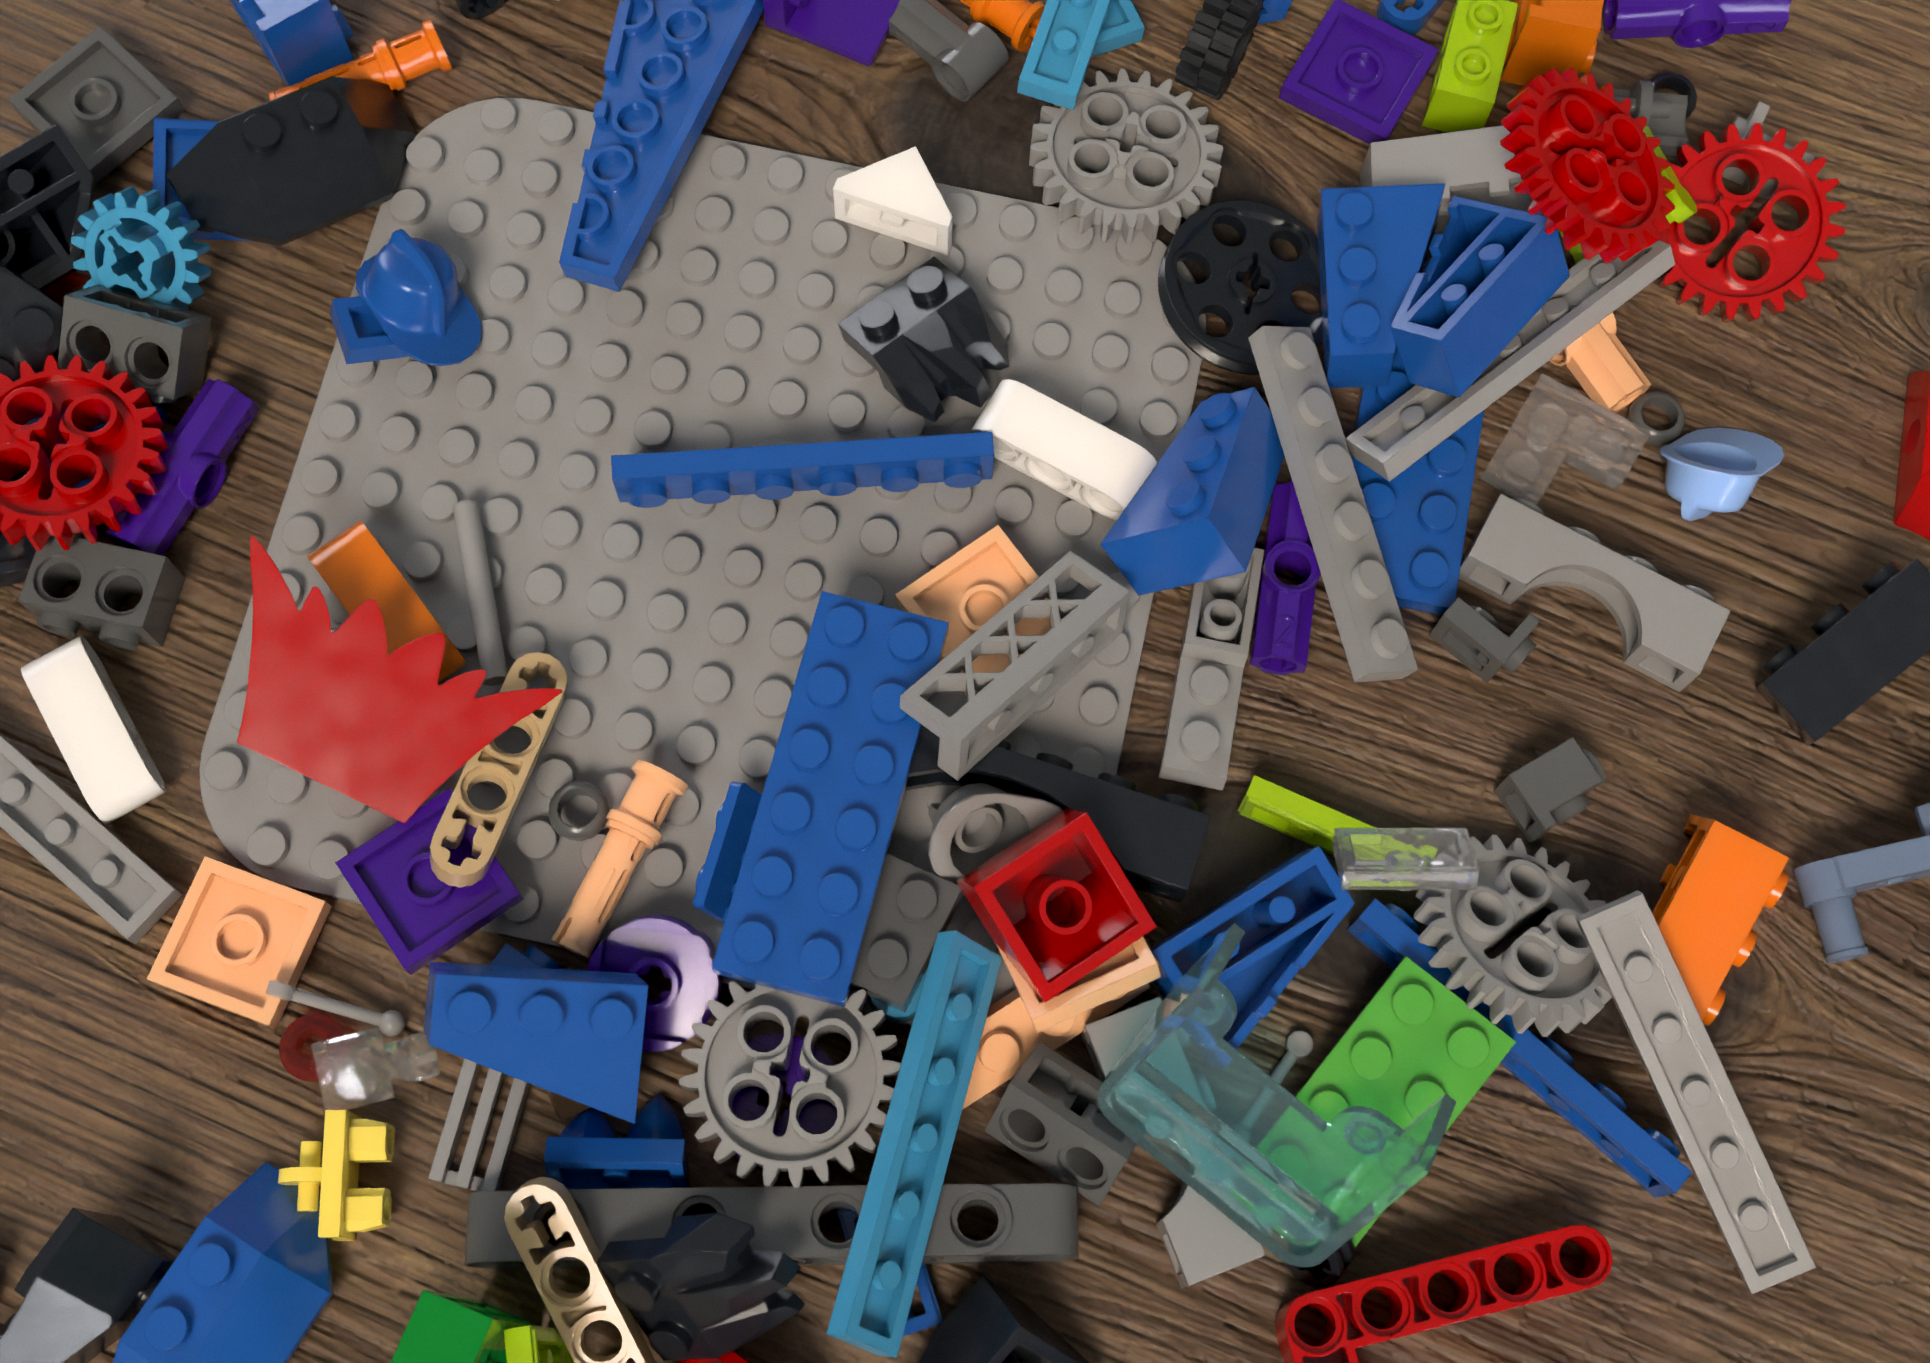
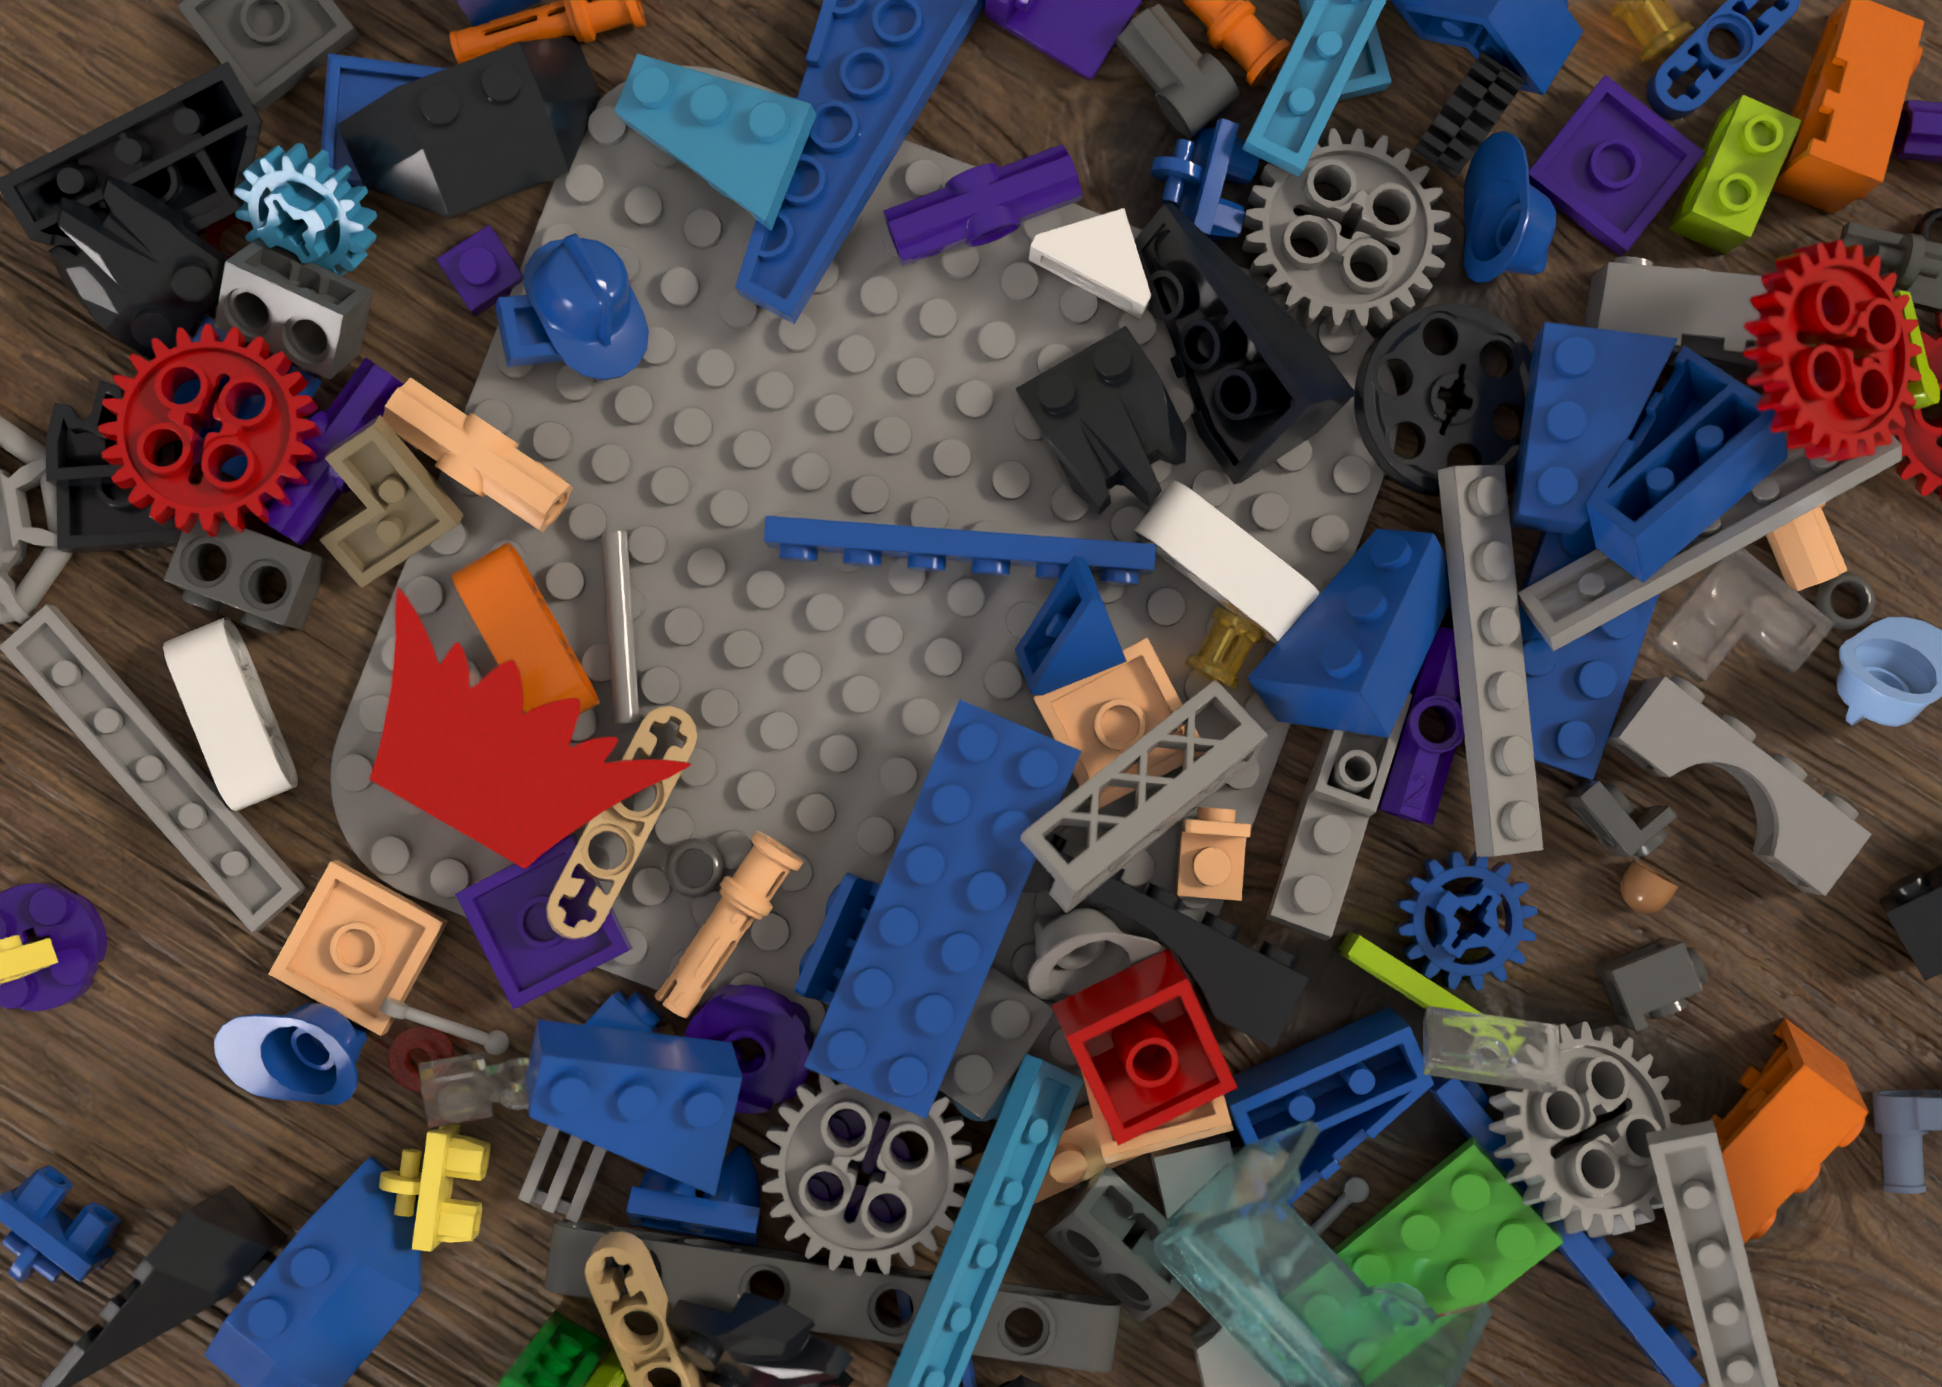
camera: 10 degrees right, 15 degrees up
(174, 1056) = (293, 1055): none -> blue piece
(250, 499) = (400, 500): none -> dark tan plate
(310, 291) = (481, 270): none -> dark purple plate
(323, 447) = (477, 454): none -> light nougat piece
(537, 135) = (720, 129): none -> dark azure wing
(784, 169) = (983, 204): none -> dark purple piece
(924, 526) = (1069, 634): none -> blue slope
(983, 126) = (1197, 177): none -> blue hips
(1049, 270) = (1246, 360): none -> black wedge
(1081, 507) = (1225, 648): none -> clear yellow bush
(1095, 721) = (1211, 855): none -> light nougat bracket
(1268, 120) = (1504, 215): none -> blue piece
(1379, 762) = (1479, 897): none -> blue gear
(1527, 702) = (1646, 889): none -> medium nougat hinge

